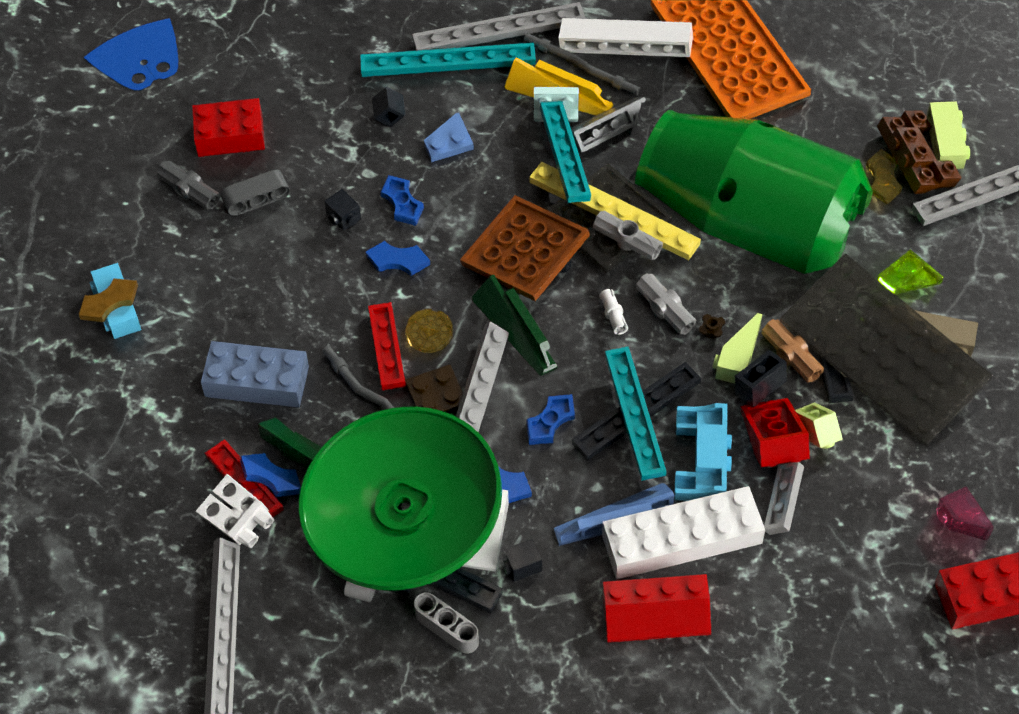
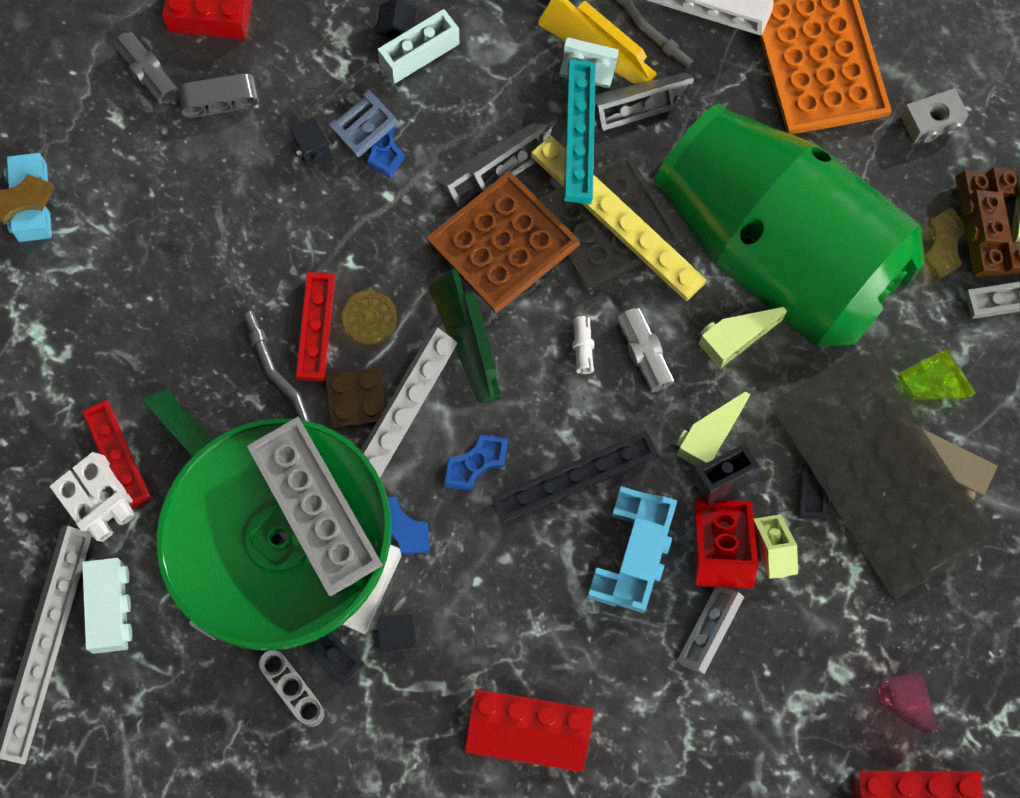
camera: 10 degrees right, 15 degrees up
(255, 374) = (159, 328): sand blue brick -> none
(260, 469) = (135, 448): blue tile -> none
(269, 595) = (106, 605): none -> light aqua brick
(387, 190) = (367, 128): none -> sand blue plate
(406, 259) = (369, 221): blue tile -> none
(413, 121) = (418, 46): none -> light aqua brick
(431, 463) = (314, 506): none -> light grey plate
(448, 139) = (455, 77): medium blue wing -> none
(493, 200) = (487, 167): none -> dark grey wedge
(591, 523) = (518, 600): medium blue wedge -> none
(618, 231) = (635, 267): light grey piece -> none
(635, 413) = (570, 485): teal plate -> none
(683, 532) = (584, 644): white brick -> none
(709, 331) = (691, 398): dark brown plate -> none
(737, 275) = (735, 334): none -> yellowish green slope
(792, 350) = (773, 445): medium nougat piece -> none
(846, 86) = (945, 106): none -> light grey brick

